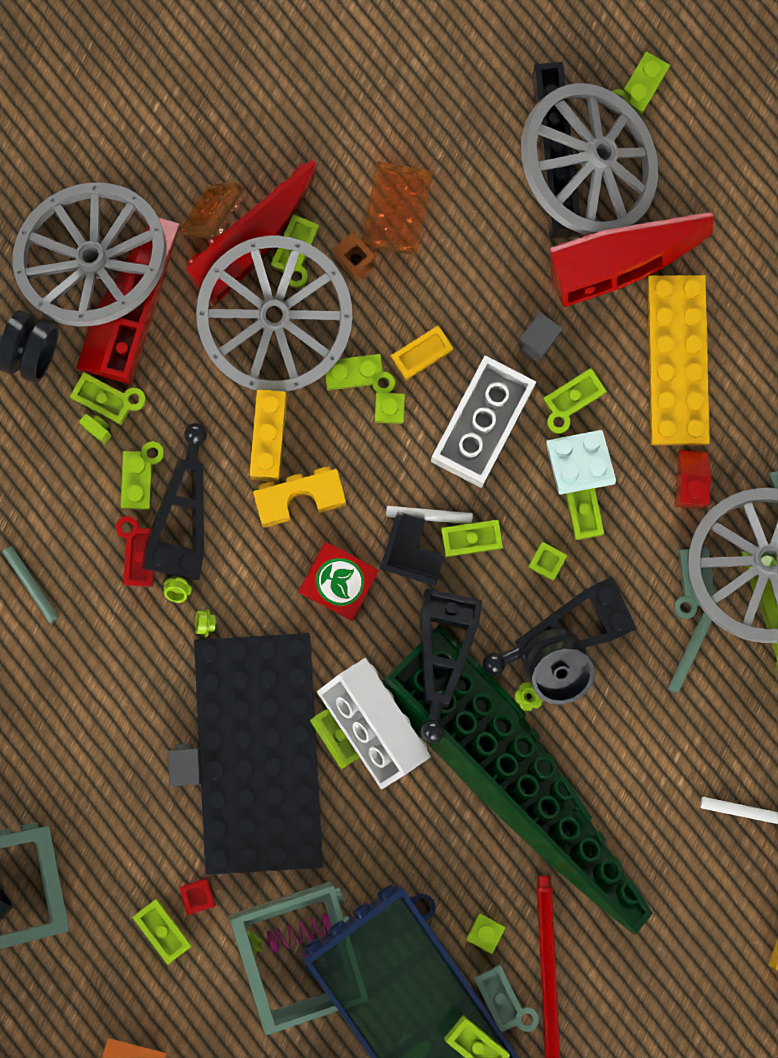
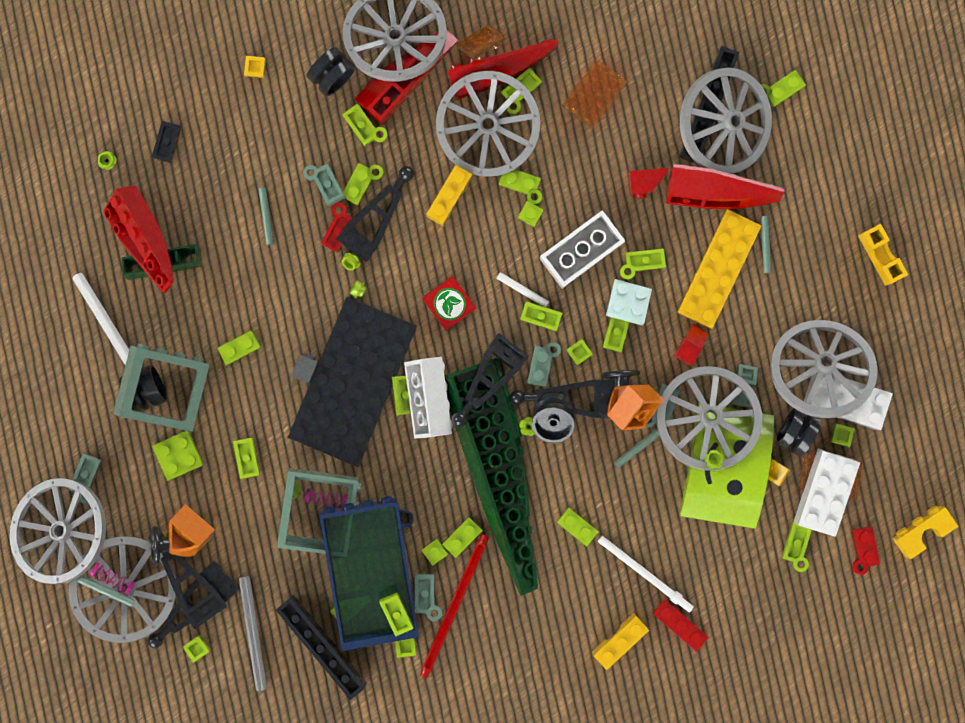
camera: 30 degrees right, 5 degrees up
(64, 975) = (177, 455): none -> lime plate
(78, 783) = (239, 347): none -> lime plate
(92, 499) = (326, 183): none -> sand green hinge
(96, 427) = (349, 140): lime plate -> none
(197, 896) = (276, 448): red tile -> none
(274, 499) = (433, 237): yellow arch -> none
(352, 247) = (554, 104): dark orange brick -> none
(404, 556) = (495, 306): black panel -> none
(422, 352) = (566, 189): yellow tile -> none
(504, 603) = (541, 364): none -> sand green hinge
(513, 893) = (462, 537): none -> lime plate
(521, 292) = (644, 181): none -> red slope
(539, 337) = (641, 214): dark grey brick -> none
(653, 598) = (631, 404): none -> orange piece
(663, 801) = (577, 526): none -> lime plate
(723, 298) = (765, 244): none -> sand green bar

